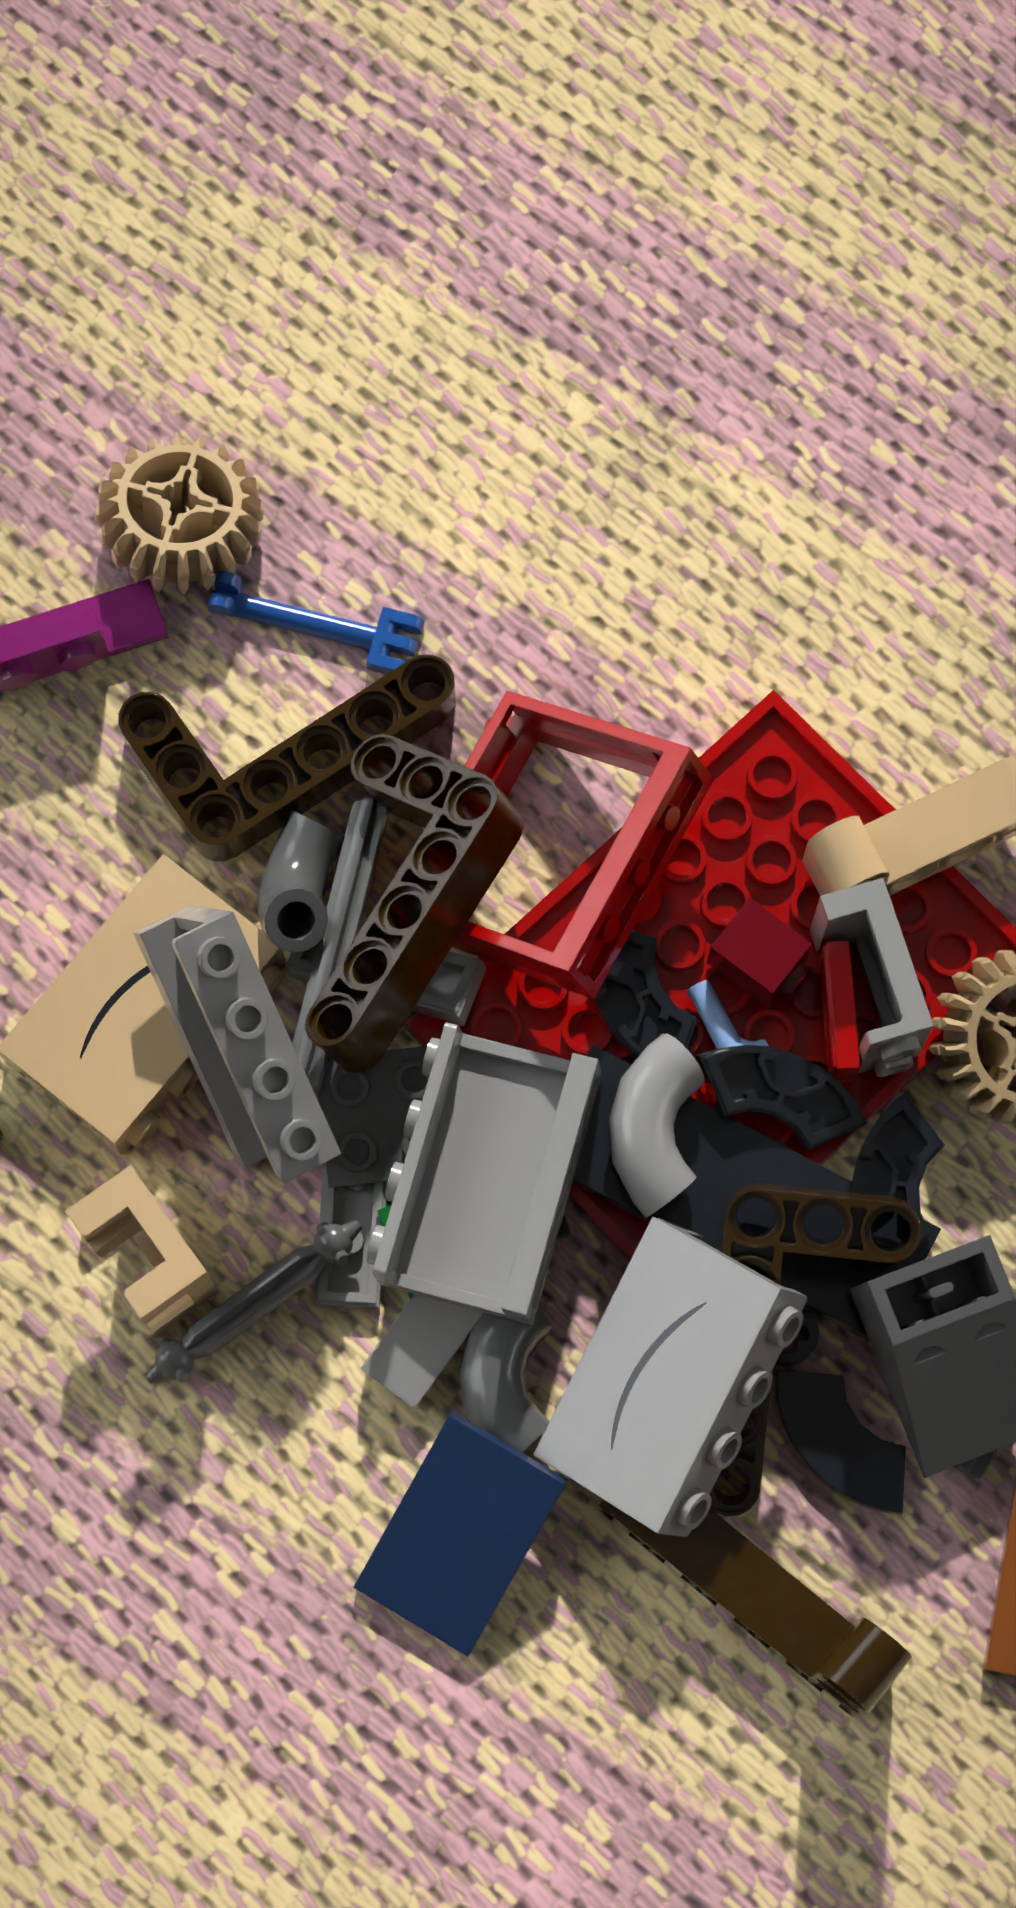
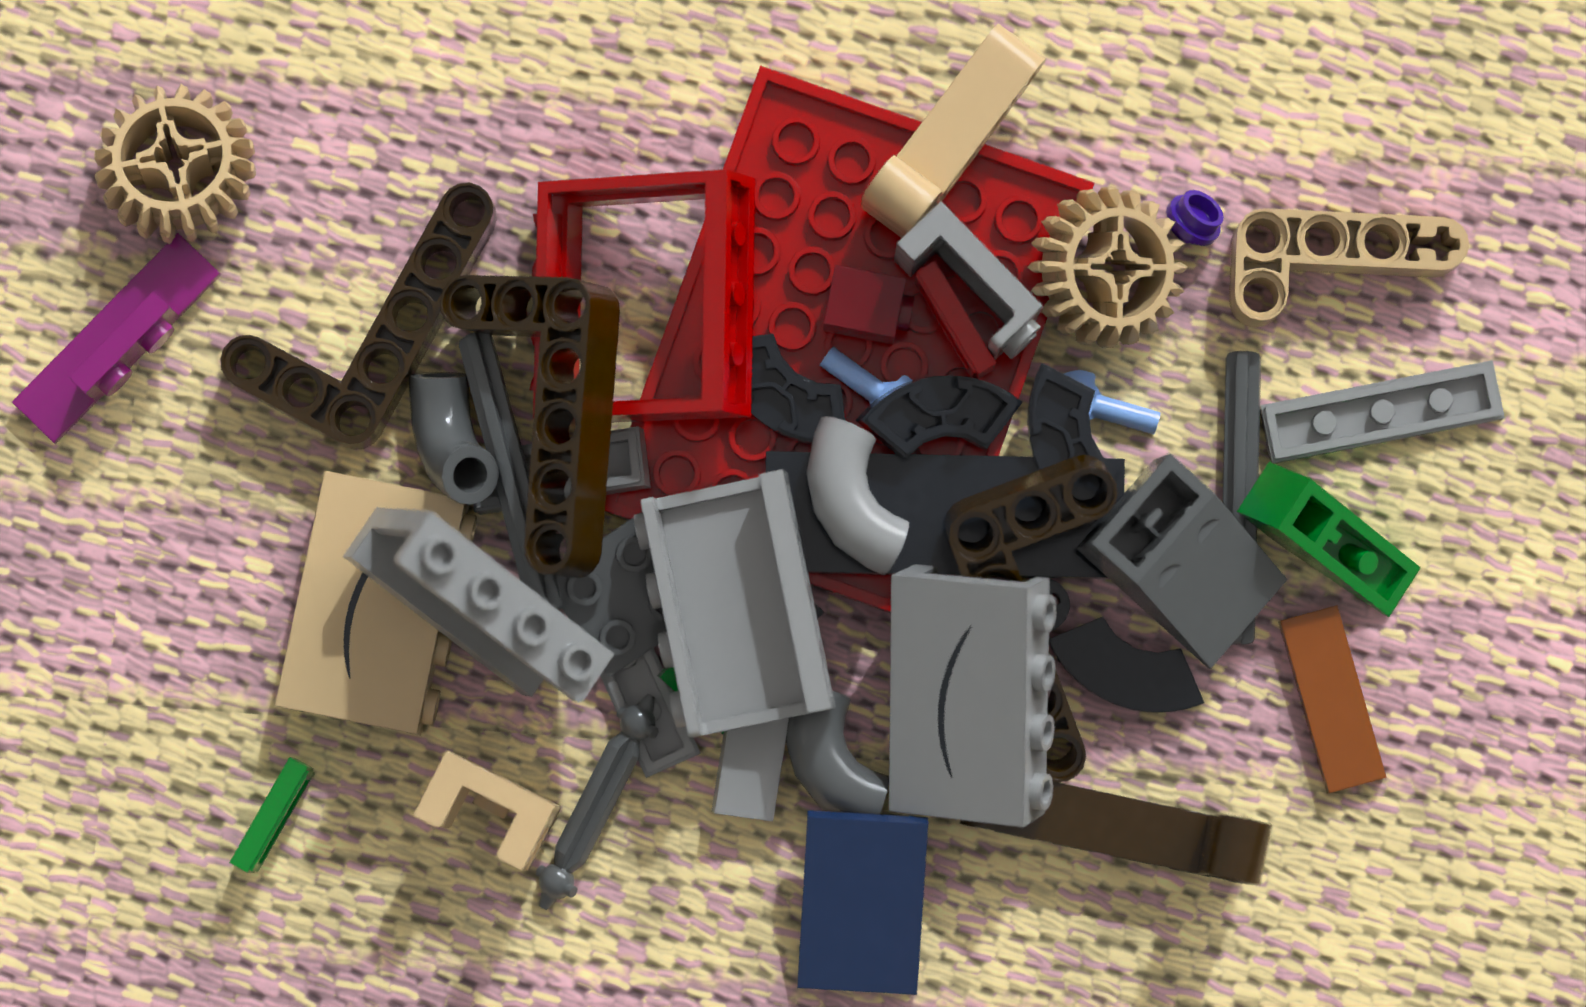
camera: 30 degrees left, 10 degrees up
(380, 640) = (404, 185): blue hinge -> none
(956, 1184) = (1116, 410): none -> light blue bar

